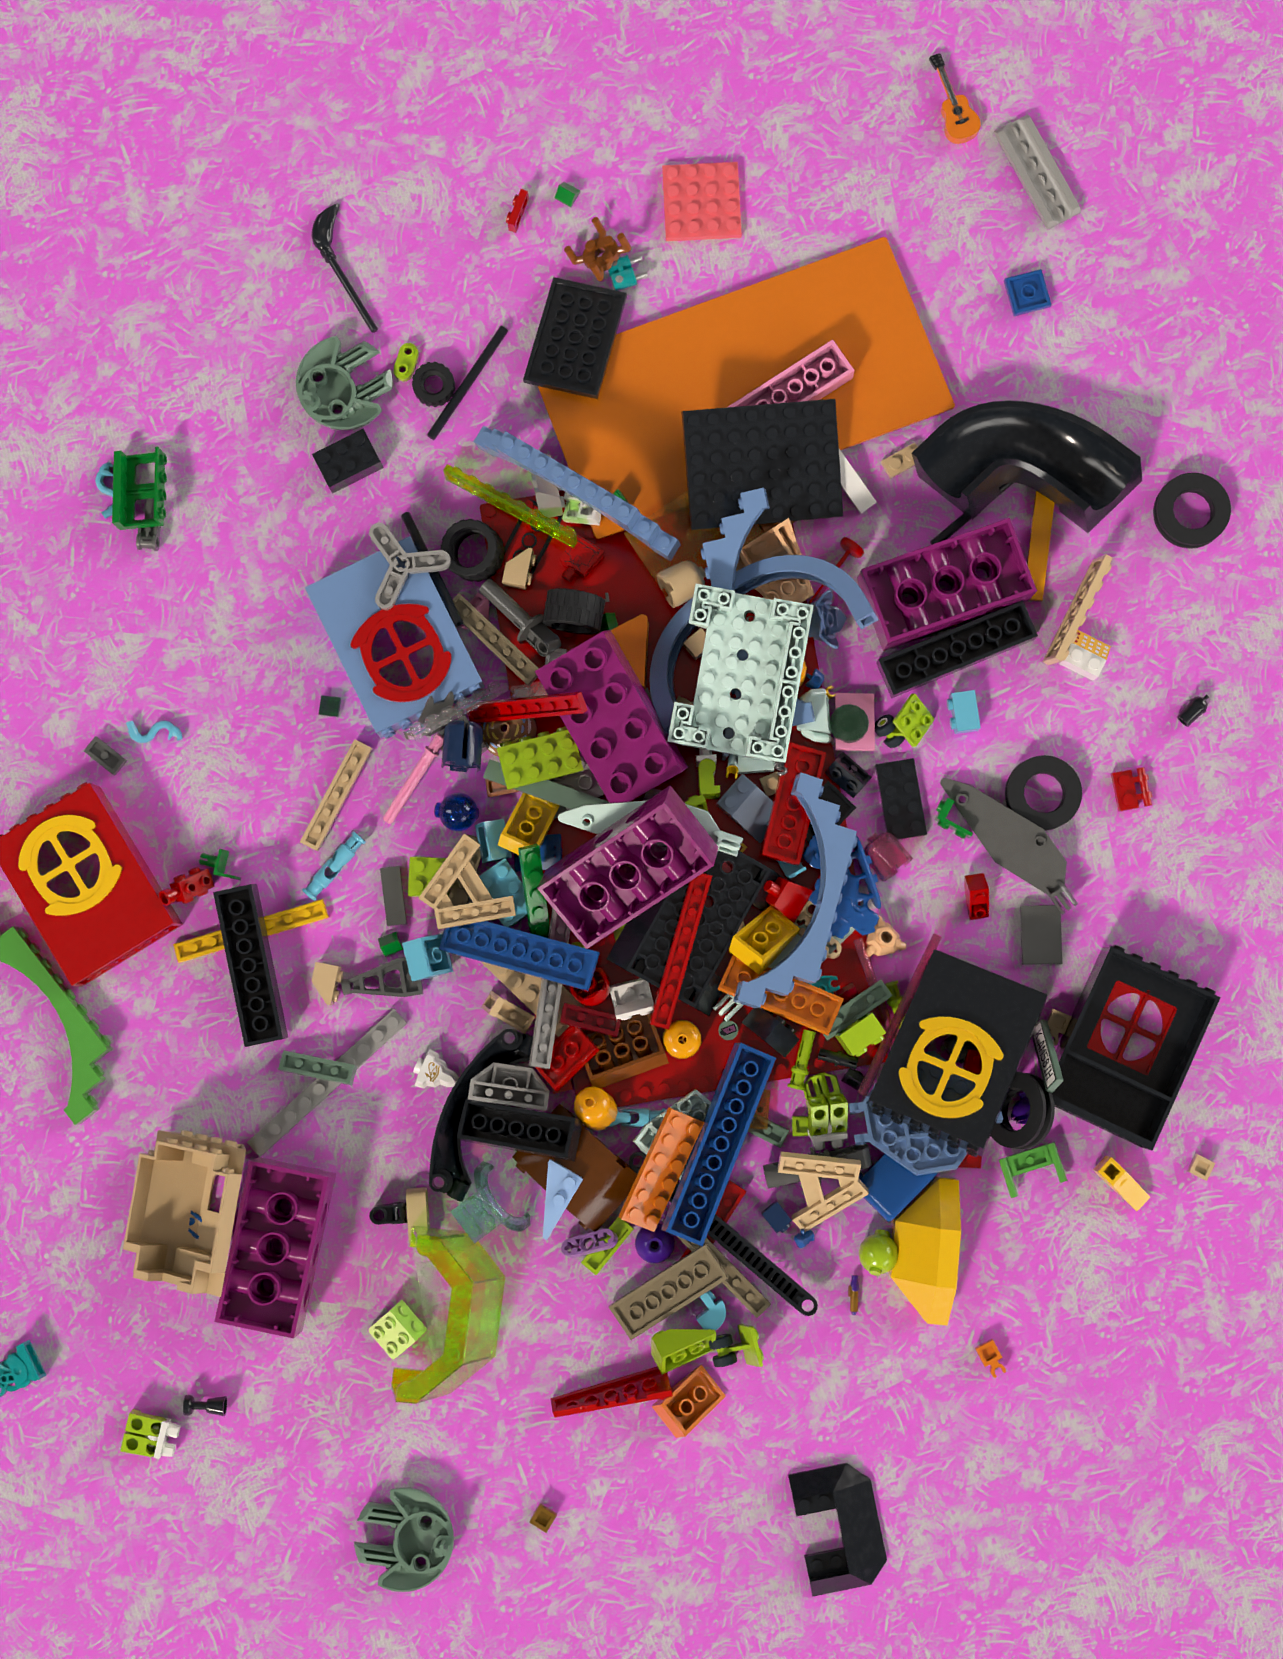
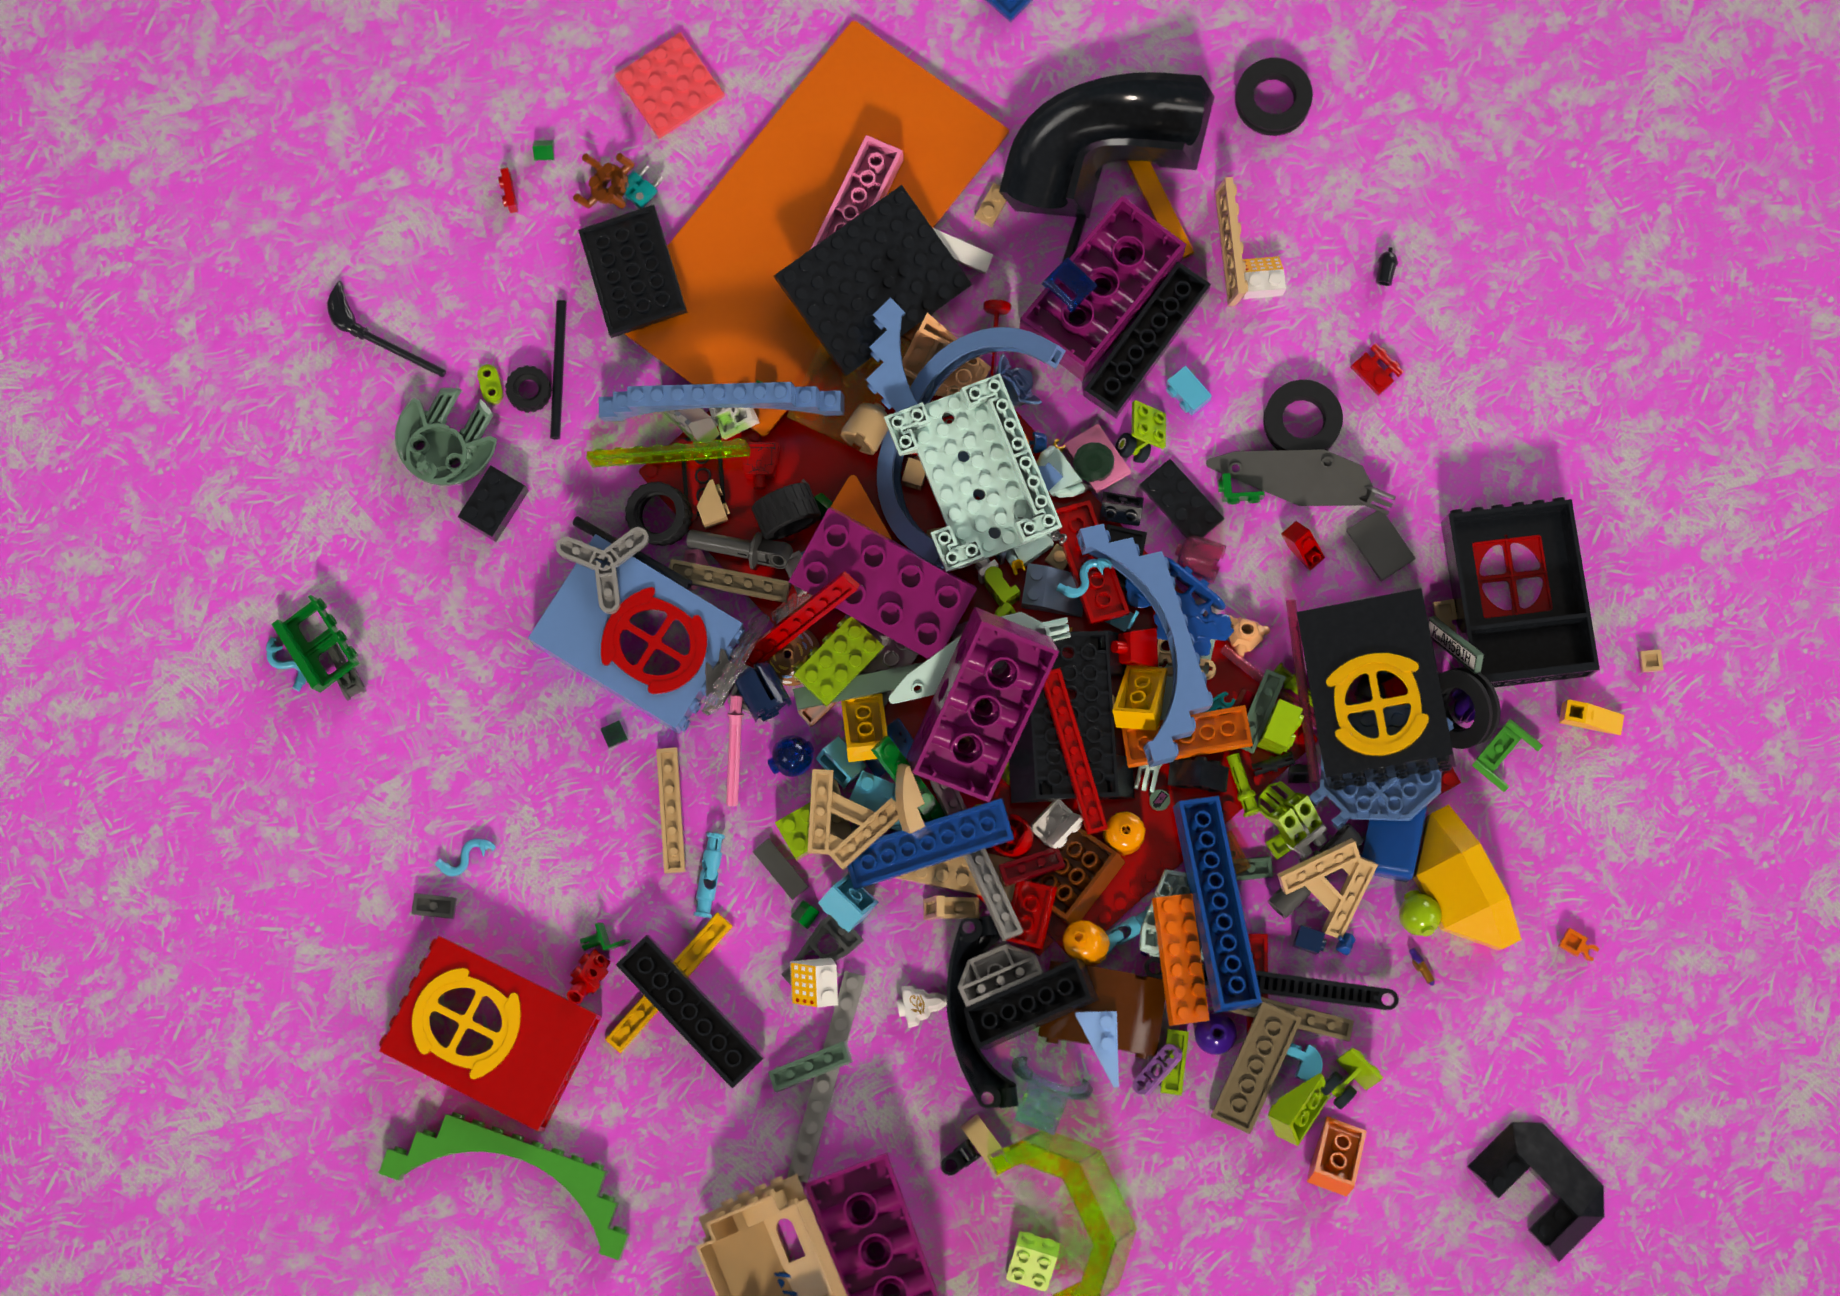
camera: 35 degrees left, 5 degrees down
(326, 981) = (767, 983): tan slope -> none
(361, 1003) = (814, 982): none -> white slope
(522, 907) = (908, 799): none -> tan slope
(622, 1391) = (1275, 1180): red wing -> none
(763, 821) = (1071, 592): none -> medium azure animal
(925, 566) = (1074, 279): none -> clear blue plate

